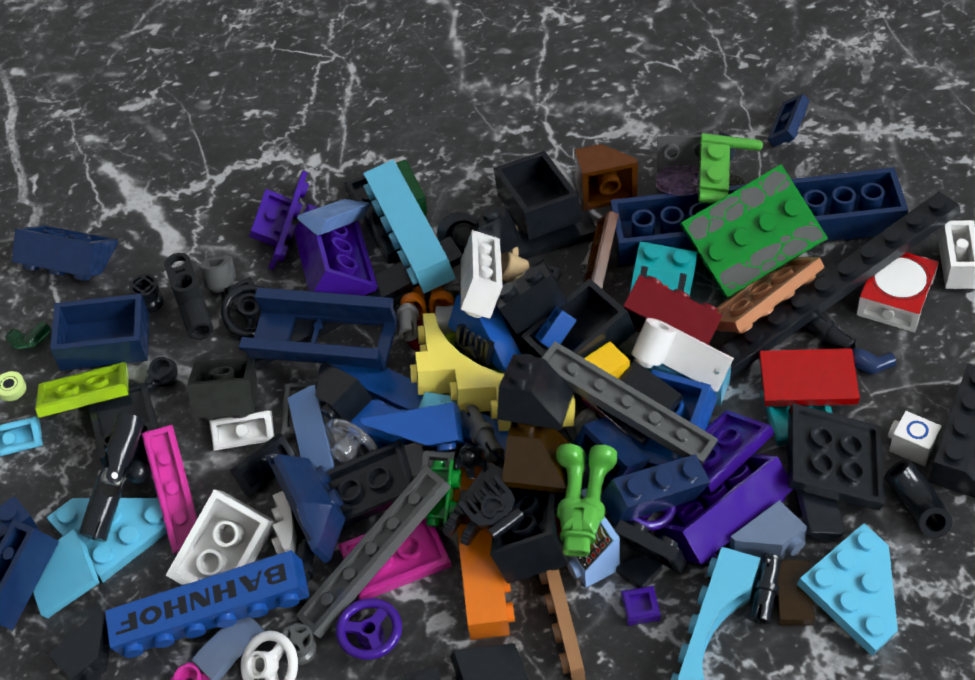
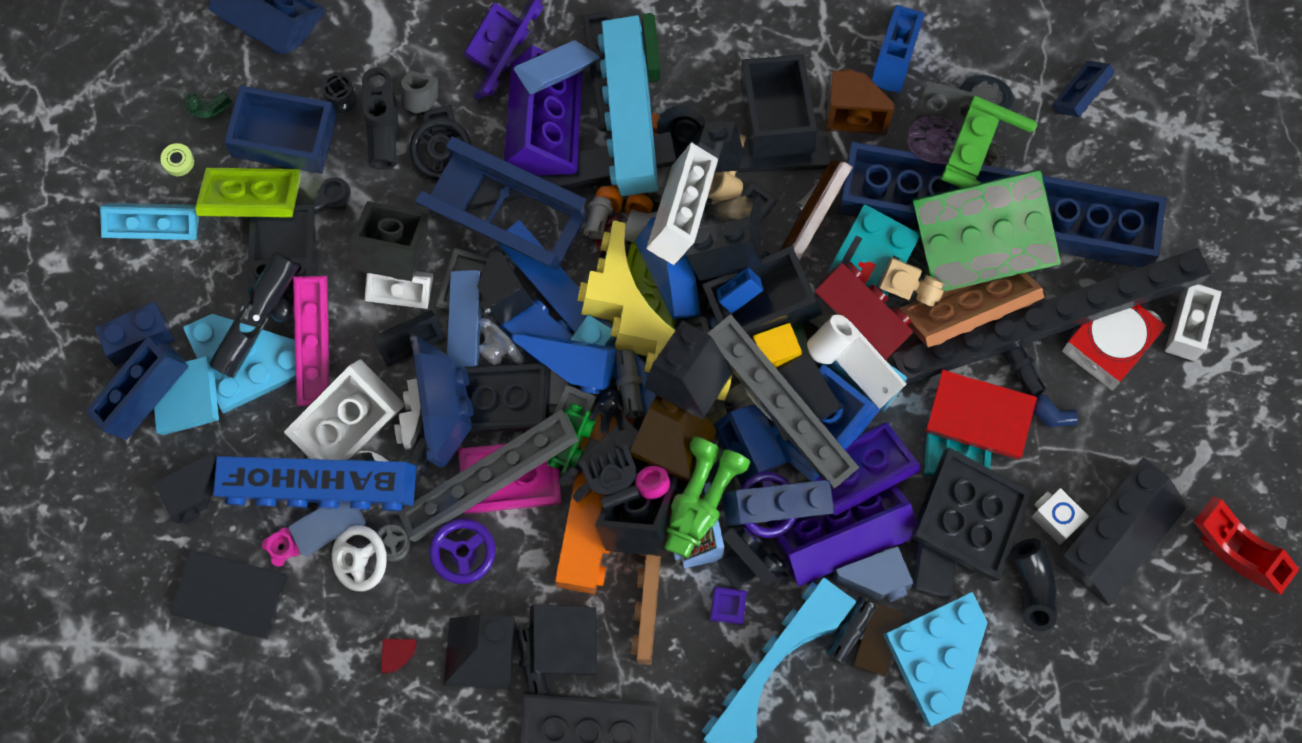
camera: 10 degrees right, 20 degrees up
(478, 353) = (648, 284): black piece -> none
(532, 502) = (652, 482): none -> dark pink tile
(622, 130) = (897, 48): none -> blue slope
(699, 288) = (903, 278): none -> tan plate

